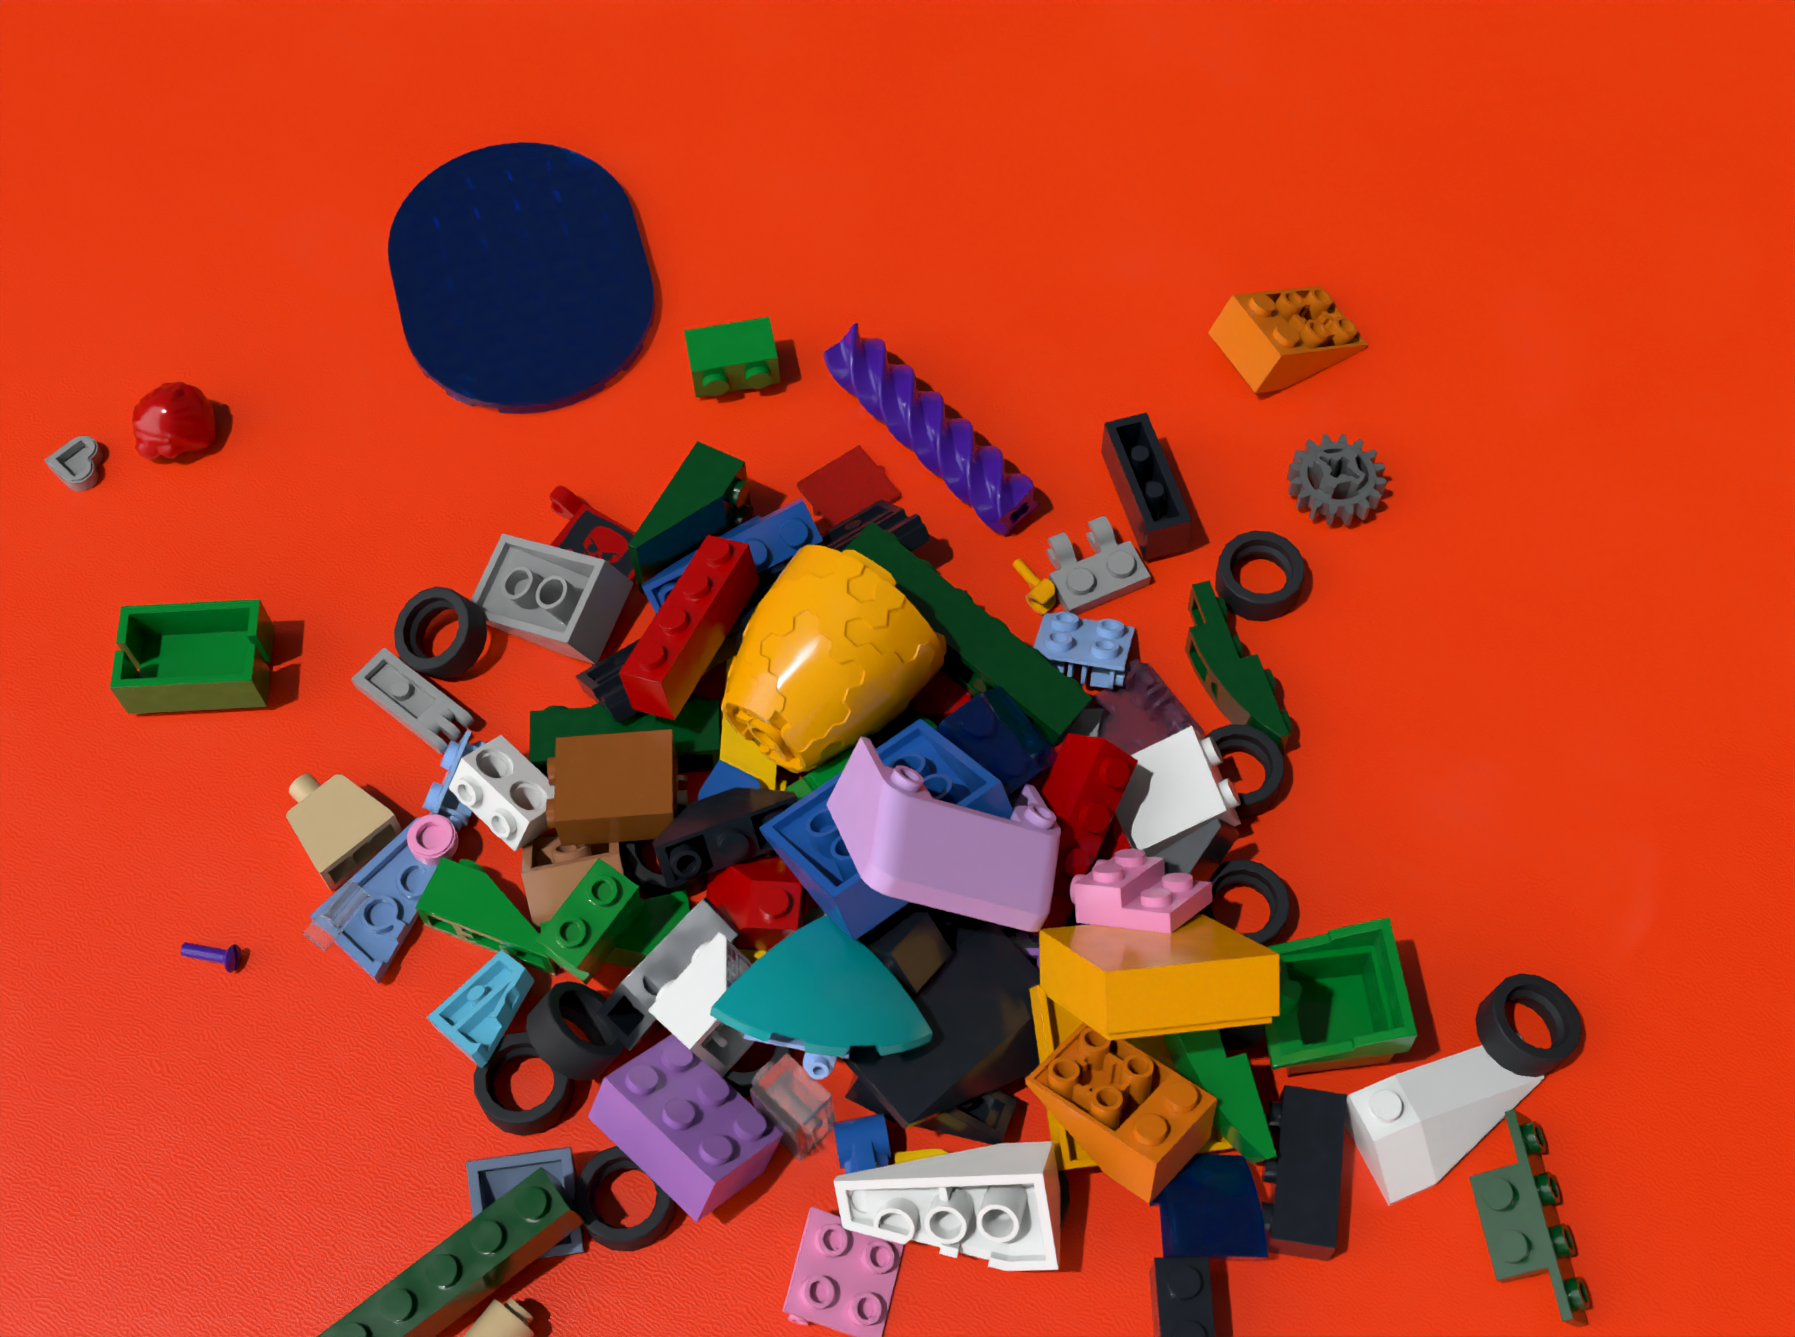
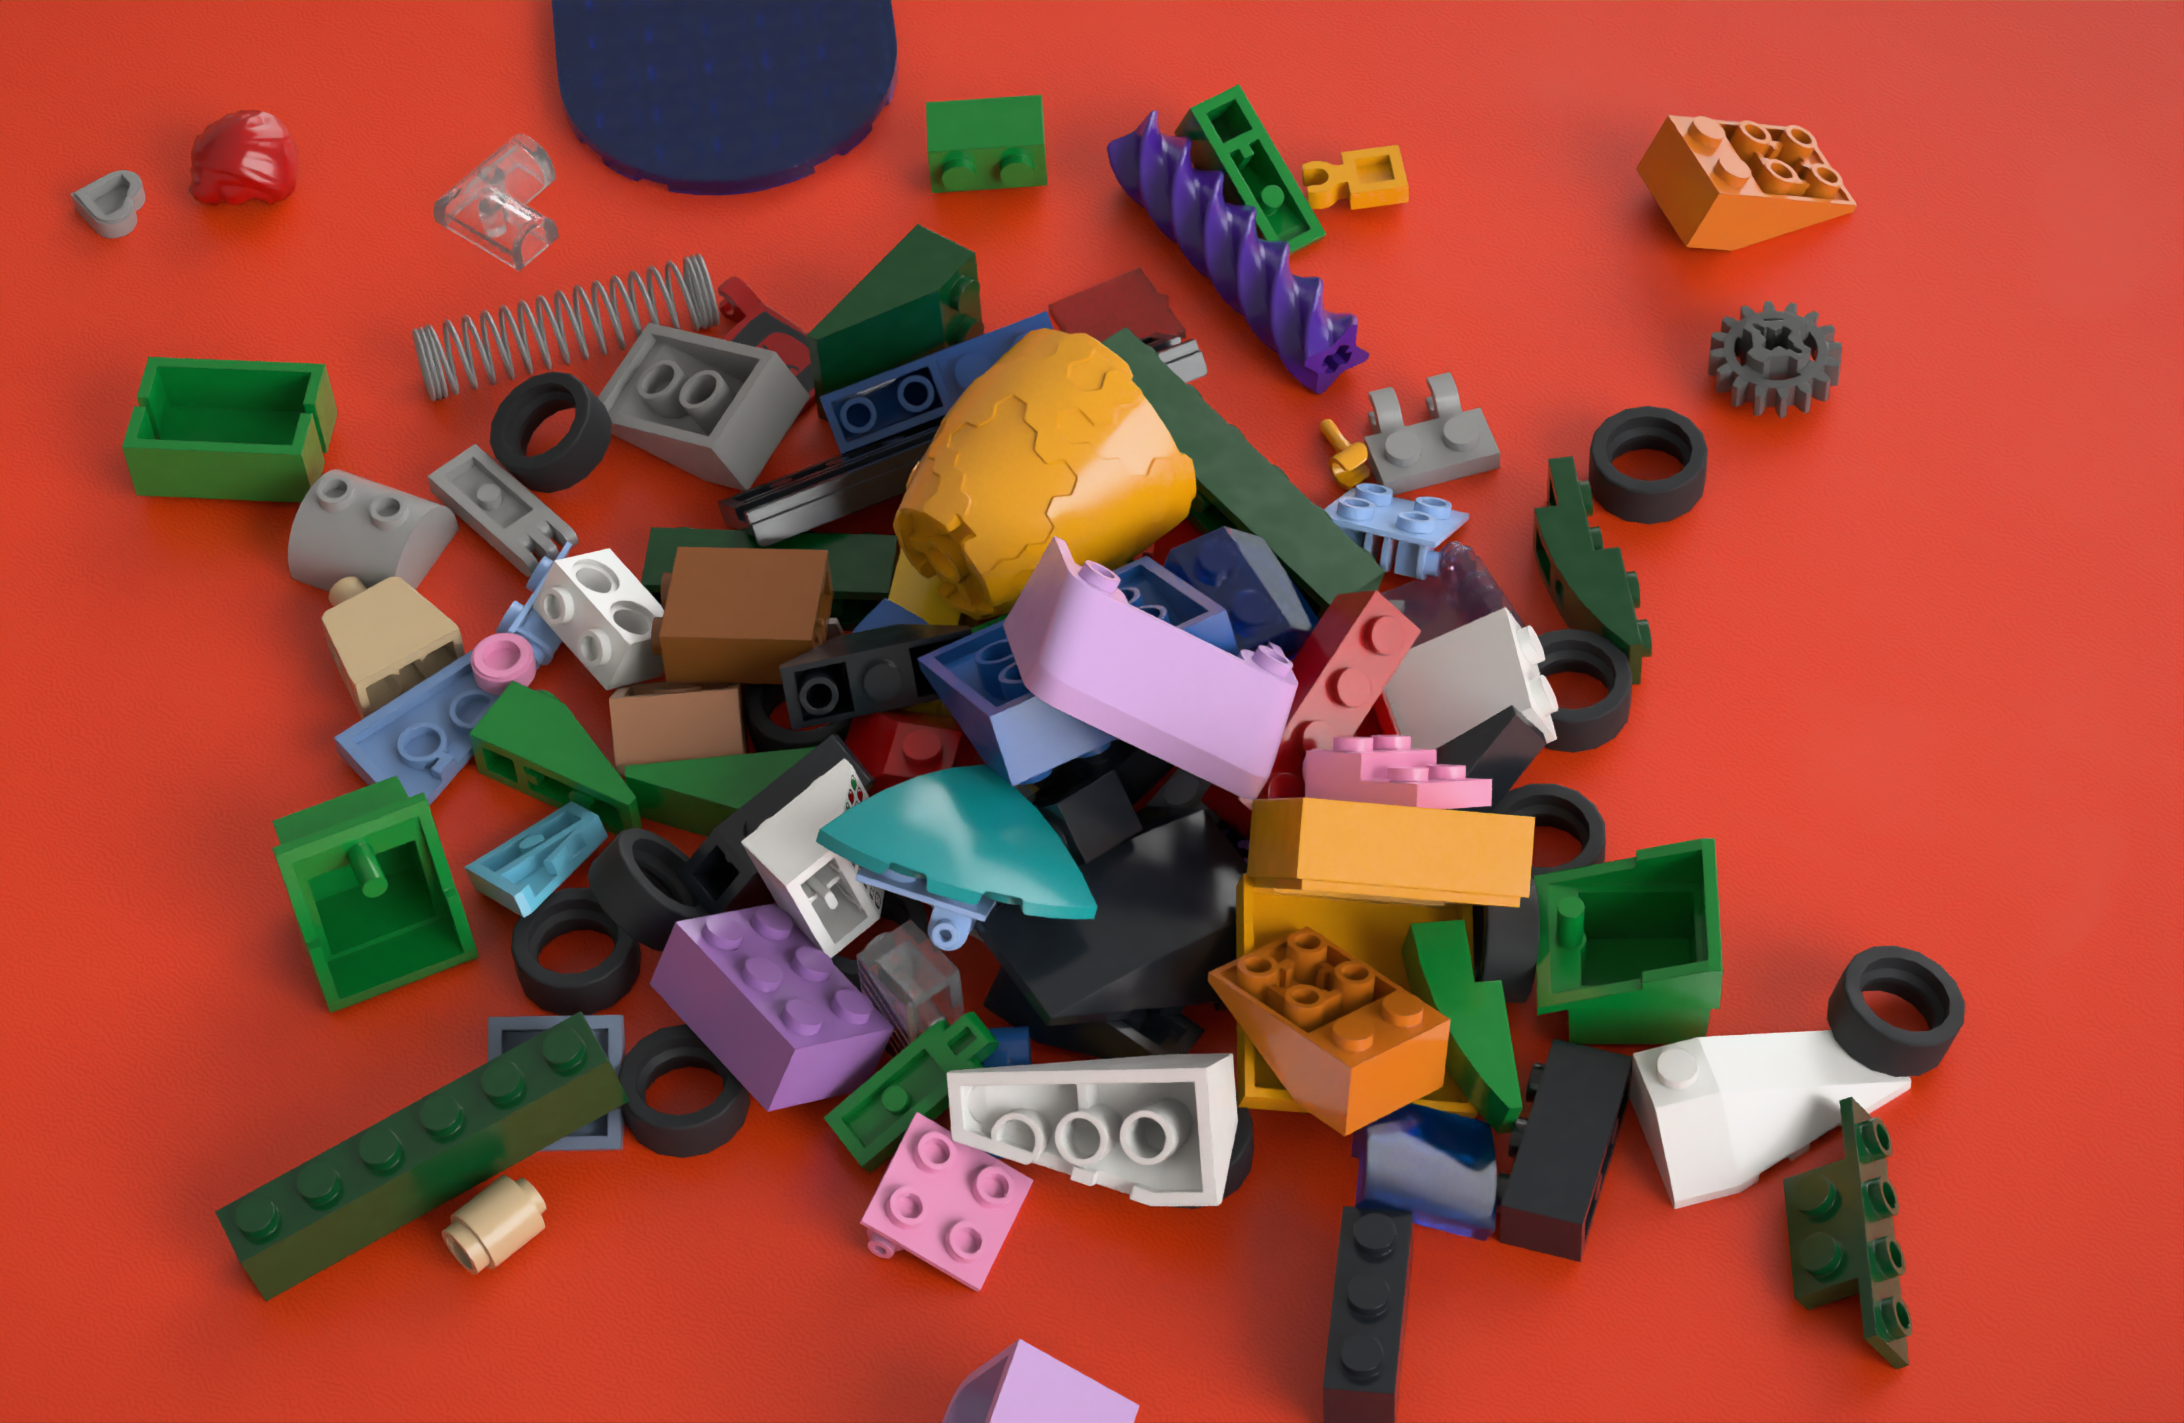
camera: 10 degrees right, 10 degrees down
(229, 958) = (225, 779): dark purple piece -> none
(311, 733) = (366, 533): none -> light grey brick
(336, 915) = (368, 735): clear piece -> none
(355, 1060) = (371, 892): none -> green piece
(366, 437) = (492, 200): none -> clear brick
(534, 503) = (695, 288): none -> light grey piece
(592, 921) = (690, 755): green hips -> none
(690, 627) = (868, 432): red brick -> none
(803, 1183) = (914, 1081): none -> green hinge
(917, 342) = (1233, 140): none -> green slope
(1012, 355) = (1364, 177): none -> light orange plate
(1145, 486) = (1511, 341): black brick -> none

